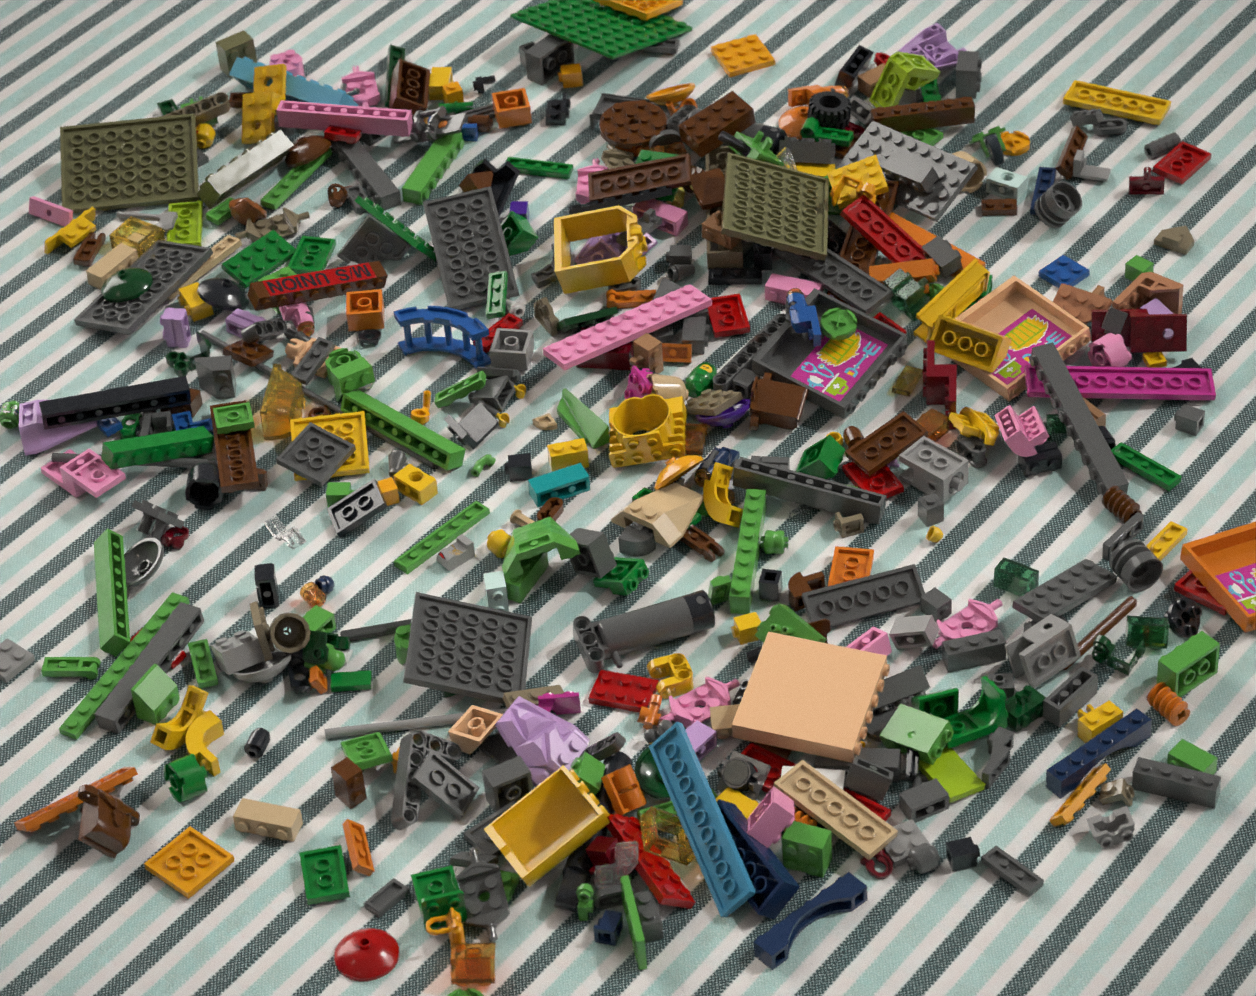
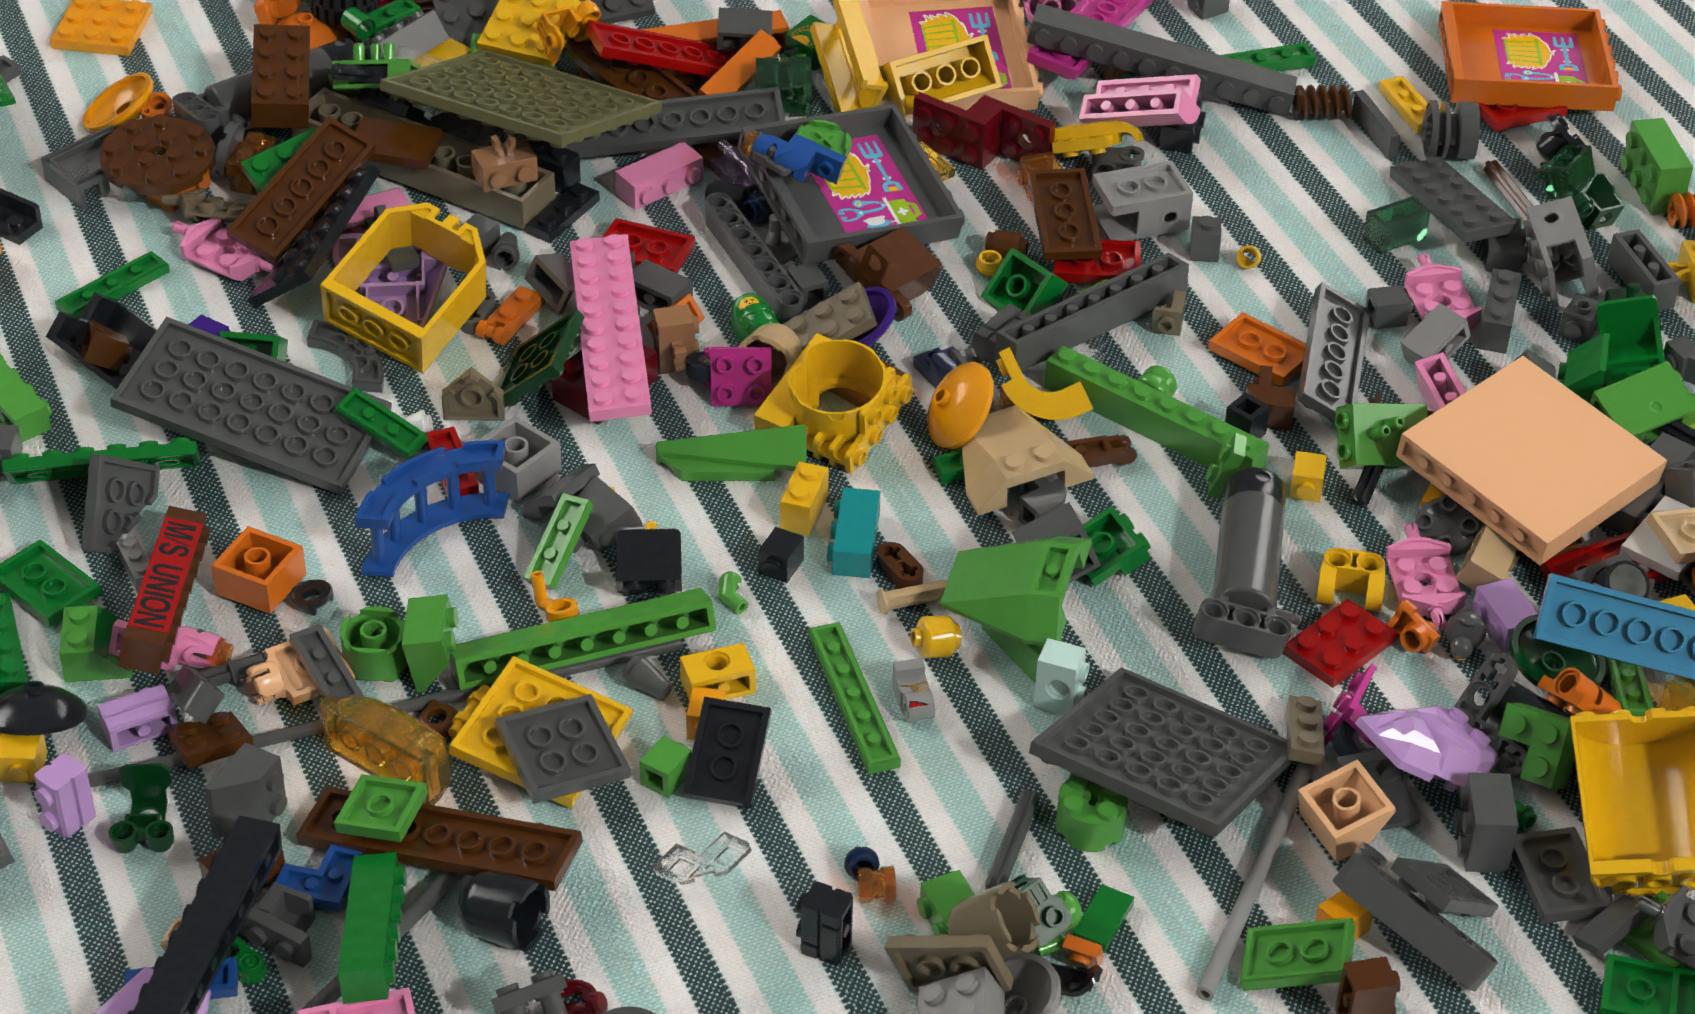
camera: 65 degrees left, 0 degrees up
(545, 422) = (696, 497): tan tile -> none

